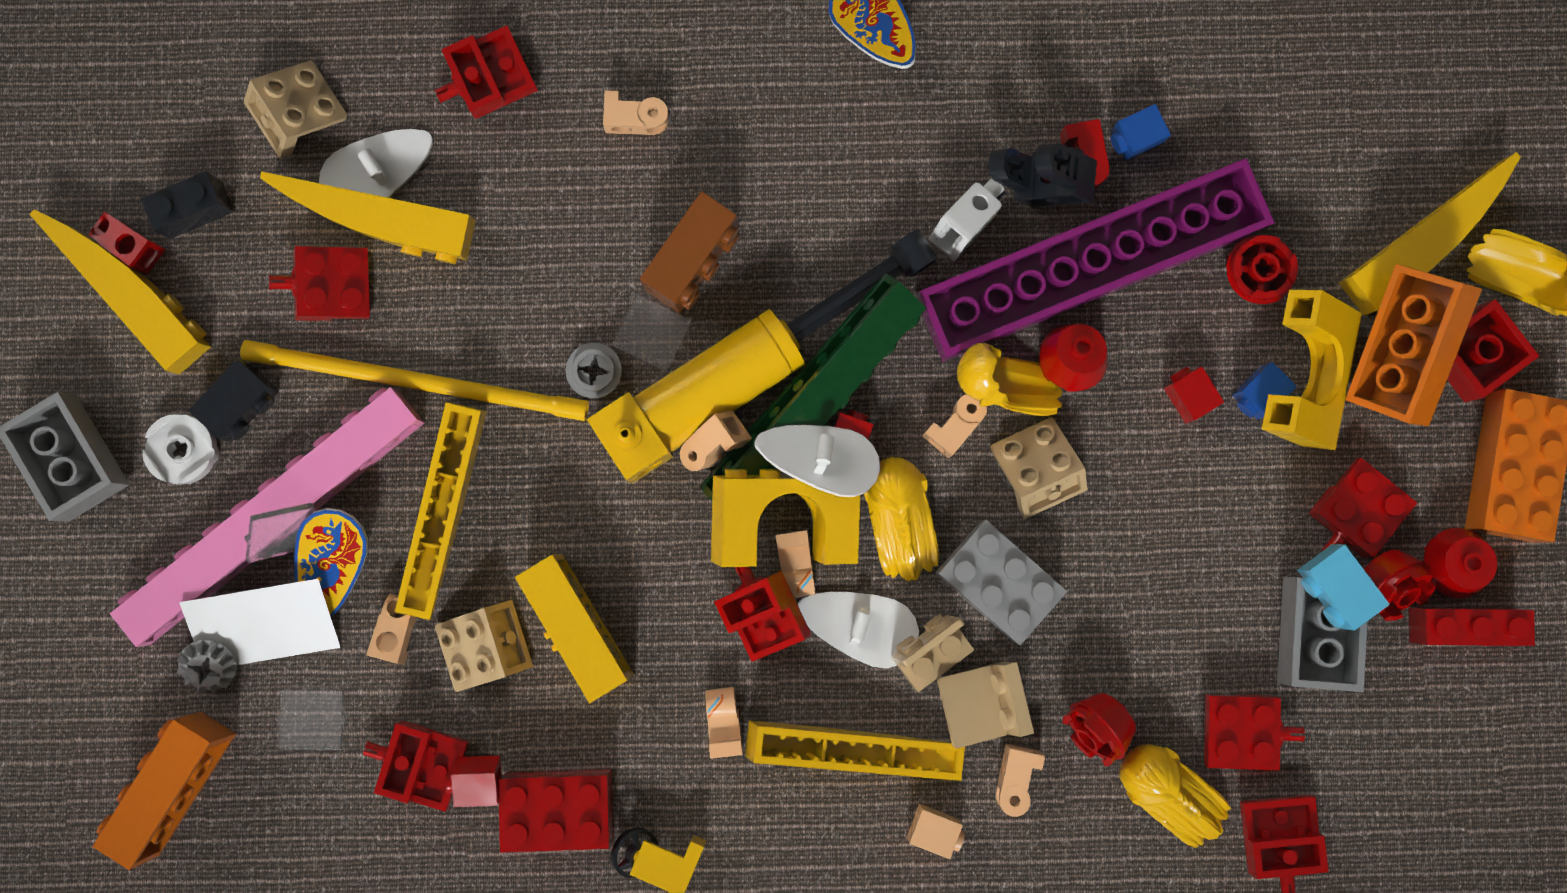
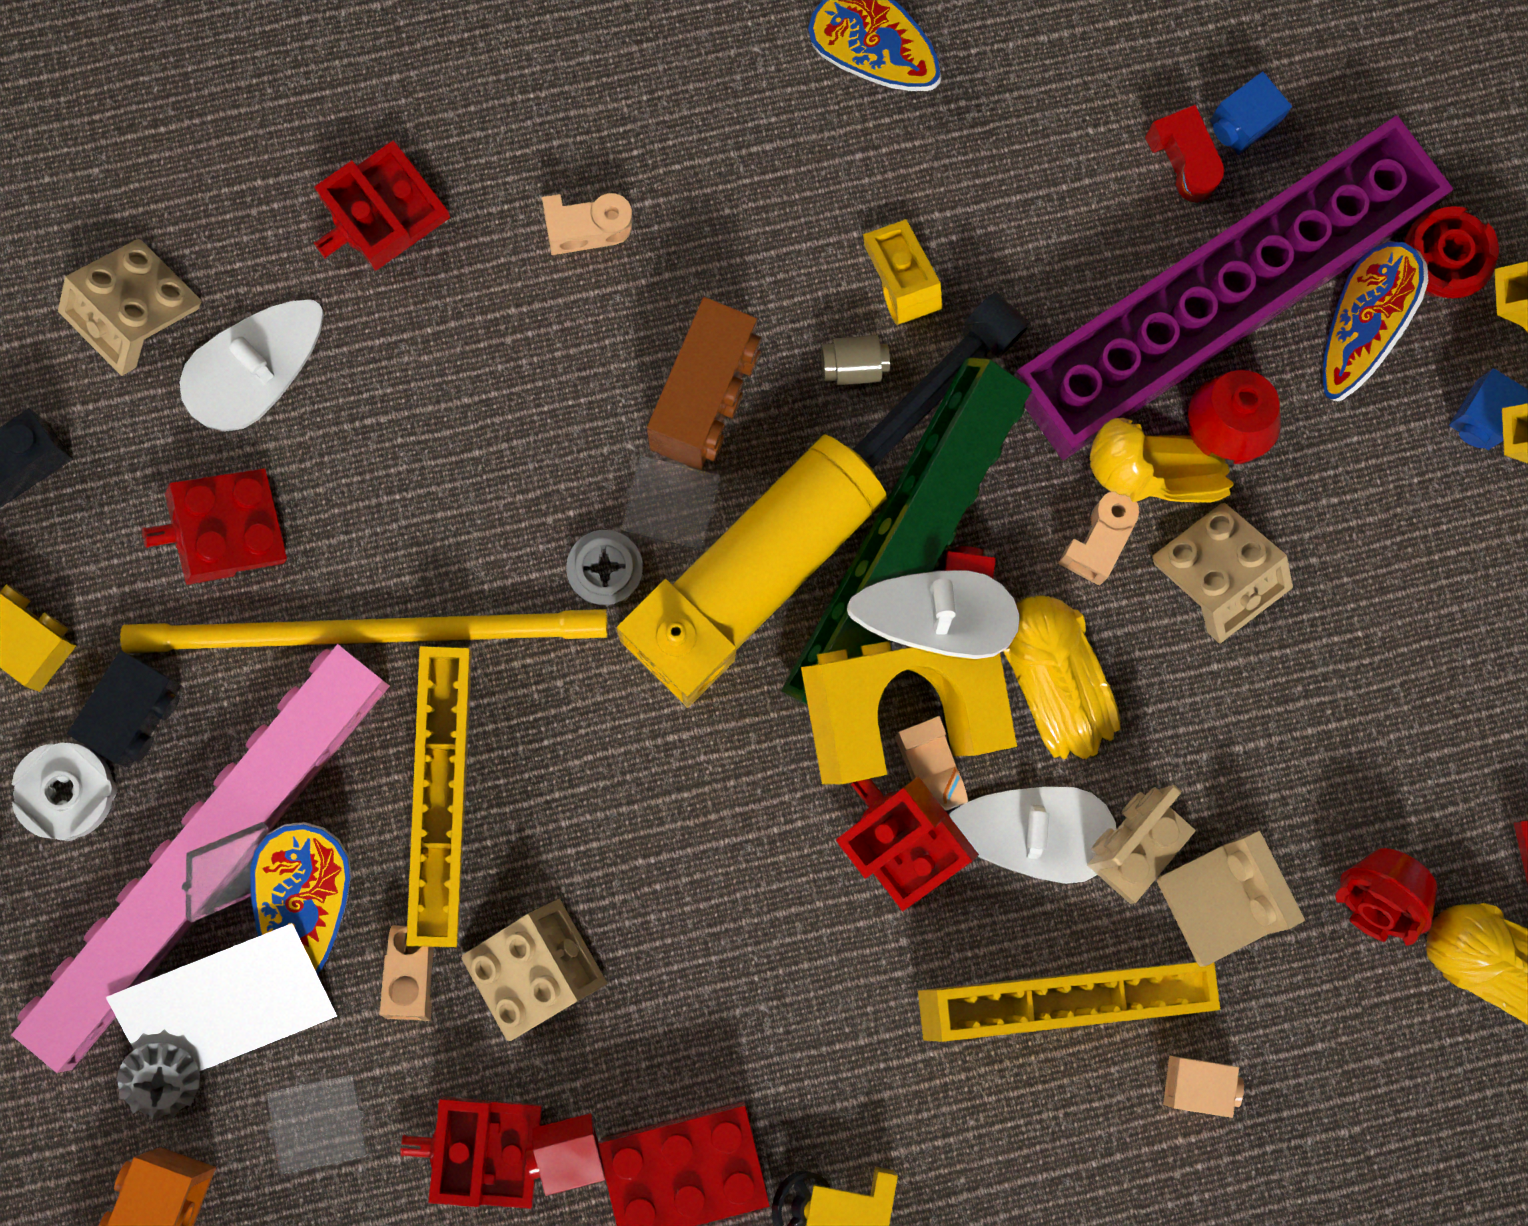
camera: 20 degrees left, 5 degrees down
(383, 218) = (278, 424): yellow slope -> none
(574, 626) = (656, 913): yellow brick -> none
(717, 435) = (781, 629): light nougat leg -> none
(723, 723) = (883, 1002): light nougat leg -> none
(806, 257) = (854, 360): none -> dark tan brick
(856, 199) = (905, 272): none -> yellow plate
(967, 218) = (1054, 267): white torso -> none
(1001, 582) = (1210, 731): light grey brick -> none
(1015, 778) = (1291, 991): light nougat leg -> none
(1047, 177) = (1127, 192): black brick -> none
(1192, 303) = (1372, 315): none -> shield
(1192, 393) = (1400, 432): red brick -> none

